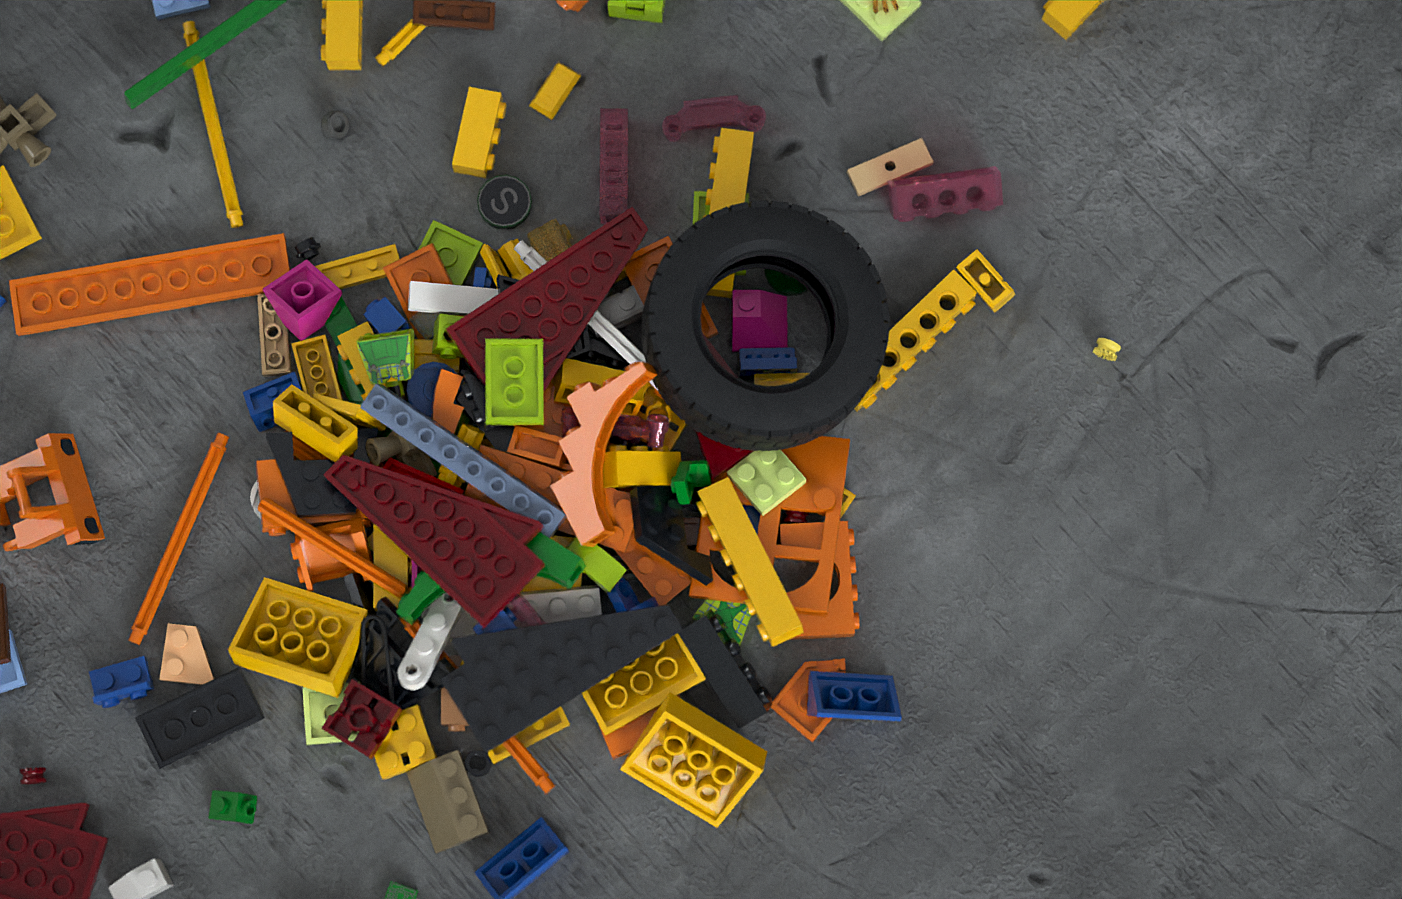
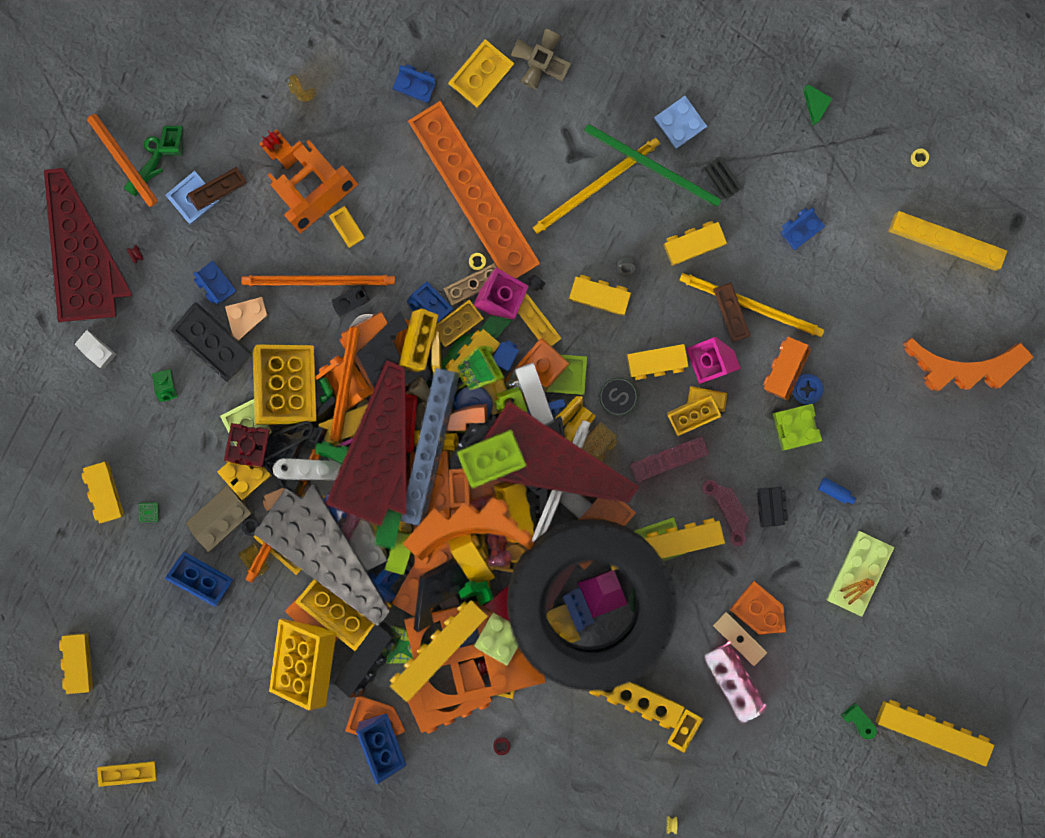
camera: 70 degrees right, 10 degrees up
(123, 471) = (346, 226): none -> yellow tile
(226, 506) = (350, 301): none -> black leg
(243, 324) = (471, 262): none -> light yellow bush
(332, 581) = (327, 389): none -> green arm
(359, 173) = (600, 295): none -> yellow brick
(505, 61) = (712, 359): none -> dark pink slope
(517, 779) = (248, 556): none -> clear yellow bracket
(568, 110) = (694, 414): none -> yellow piece
(730, 60) = (771, 506): none -> black brick
(862, 128) = (760, 610): none -> orange tile
(923, 538) = (502, 752): none -> dark red bush
(1057, 54) = (863, 723): none -> green leg

